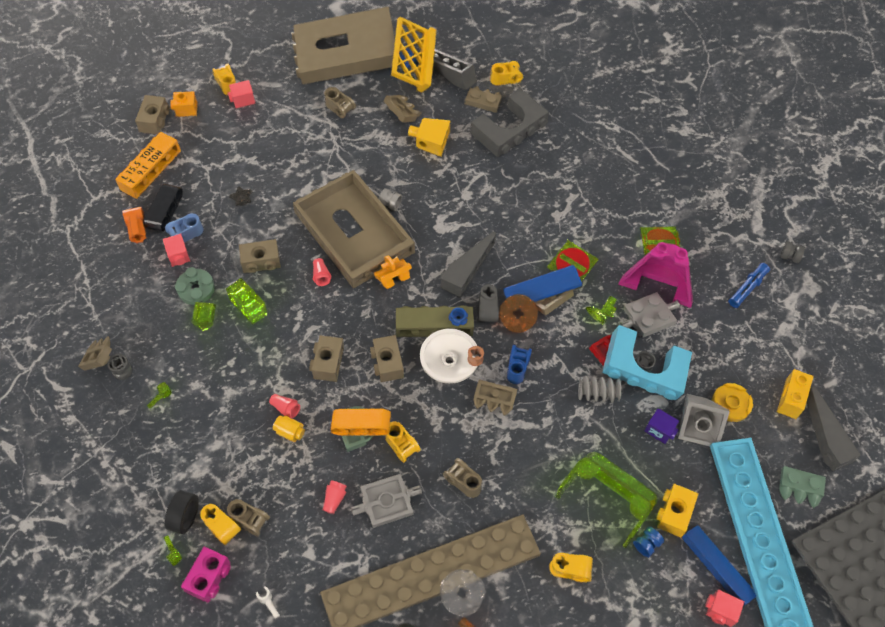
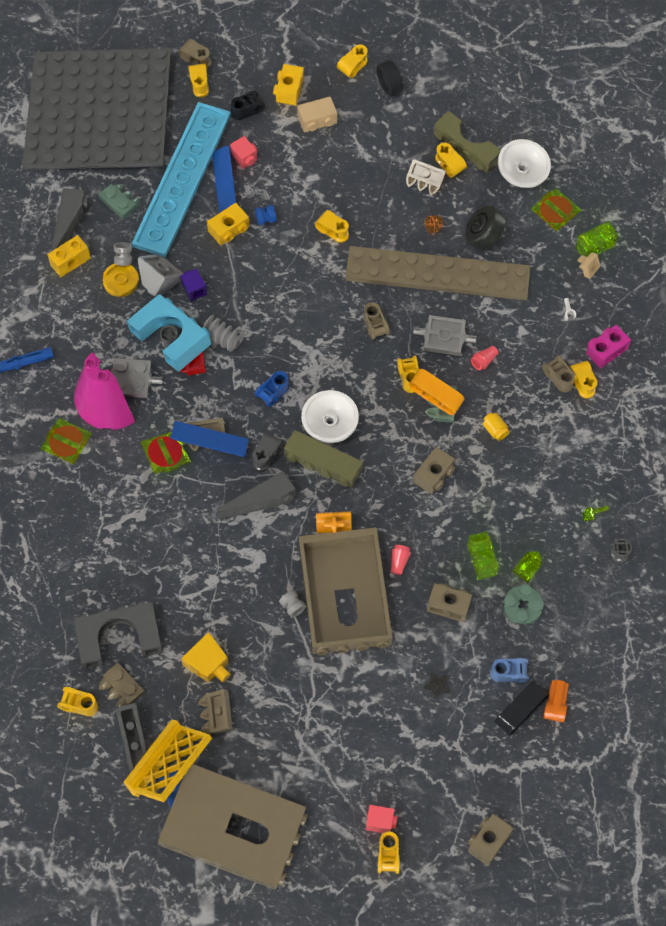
camera: 150 degrees left, 5 degrees up
(96, 355) = (640, 565): dark tan plate -> none
(148, 165) = (518, 770): light orange brick -> none
(174, 556) = (627, 374): clear neon green hand -> none
(176, 250) = (527, 644): coral brick -> none
(181, 512) = (610, 394): black tyre -> none
(184, 104) = (449, 837): light orange brick -> none
(286, 406) = (490, 448): coral cone -> none
(338, 102) = (280, 750): dark tan piece -> none
(389, 348) = (383, 435): dark tan brick -> none
(452, 584) = (424, 245): clear plate -> none
(458, 312) = (304, 435): blue plate -> none
(478, 359) = (308, 402): nougat axle -> none
(495, 396) = (311, 372): dark tan plate -> none
(527, 307) = (254, 430): clear orange plate -> none
(595, 465) = (266, 277): clear neon green windscreen -> none
(602, 315) = (168, 395): clear neon green plate -> none
(749, 420) = (122, 253): none -> light grey wheel

